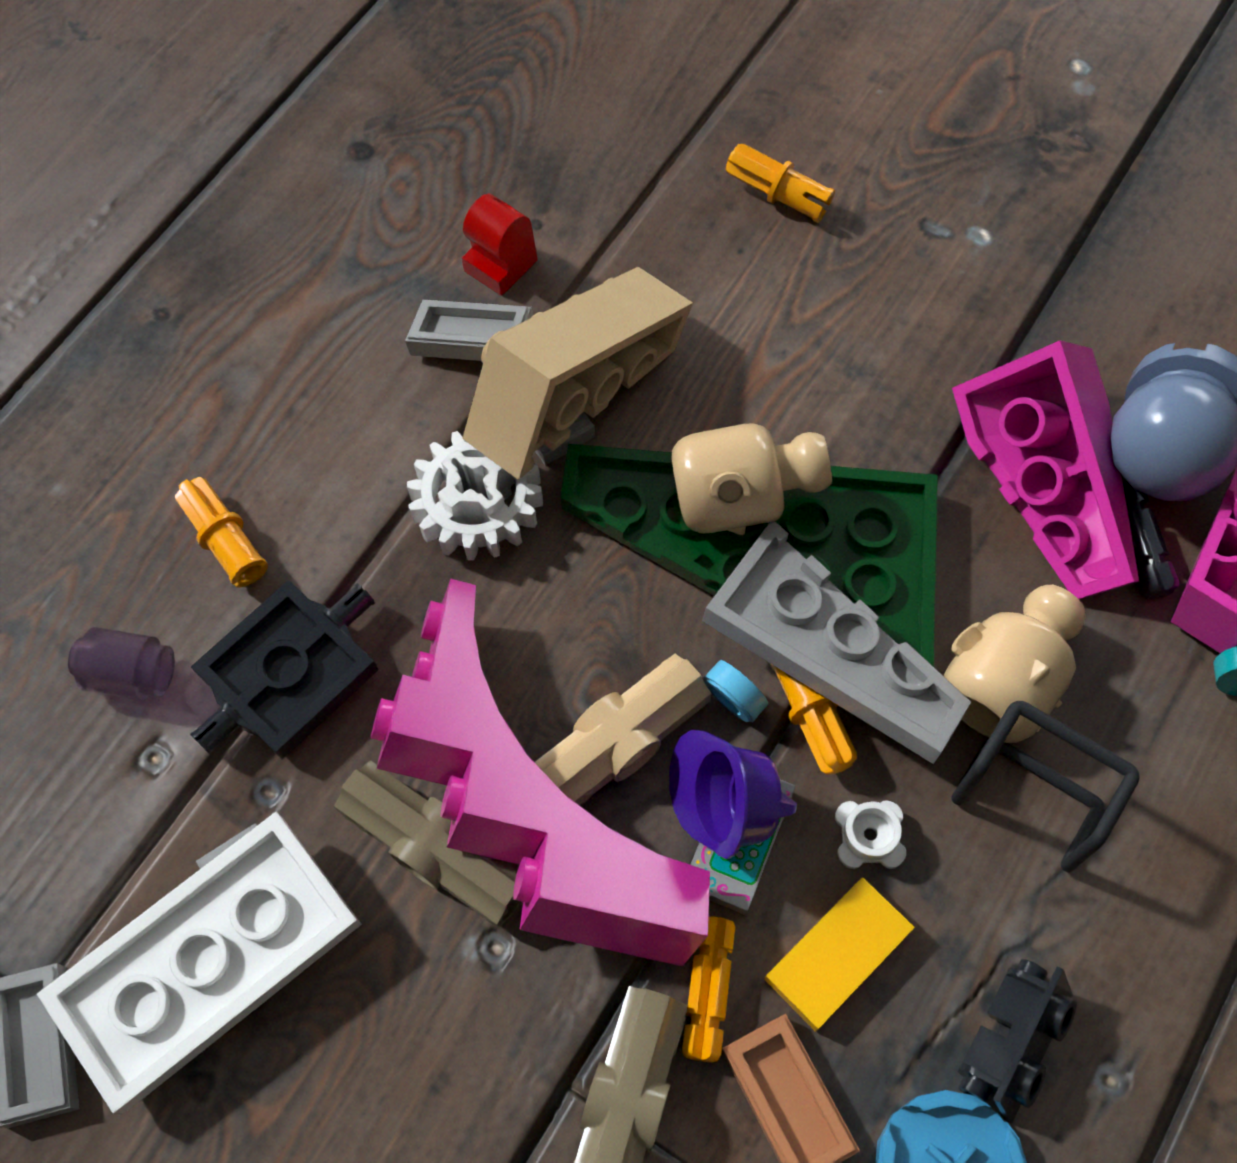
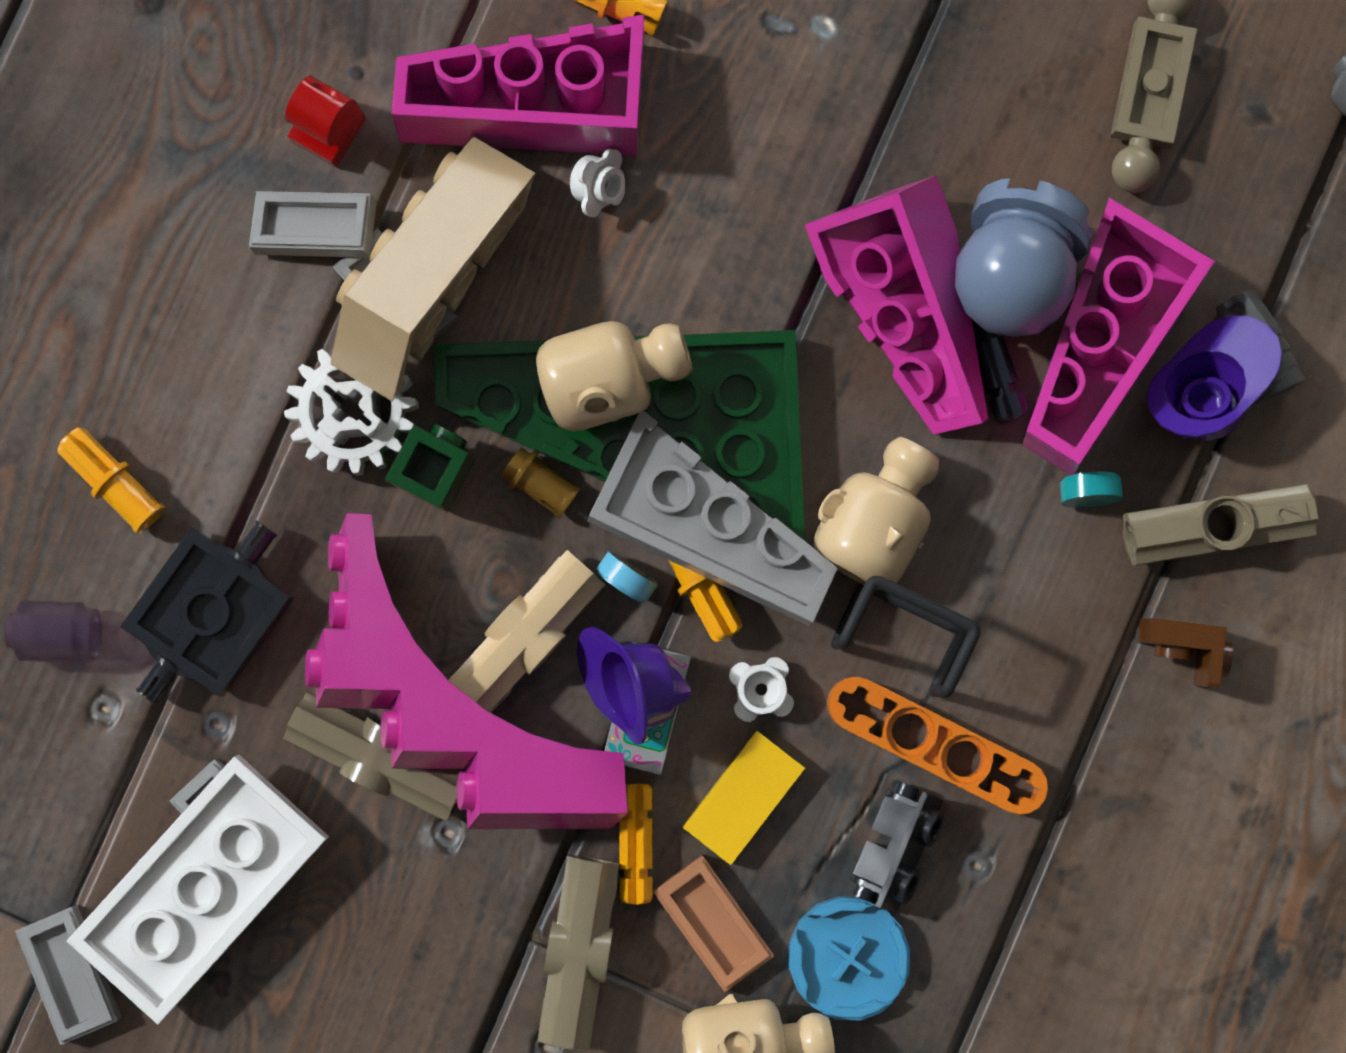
camera: 10 degrees left, 20 degrees up
(545, 551) = (431, 466): none -> dark green brick
(655, 587) = (540, 482): none -> pearl gold pin
(695, 241) = (527, 94): none -> dark pink wedge
(752, 325) = (598, 182): none -> white plate
(1064, 933) = (939, 738): none -> orange beam

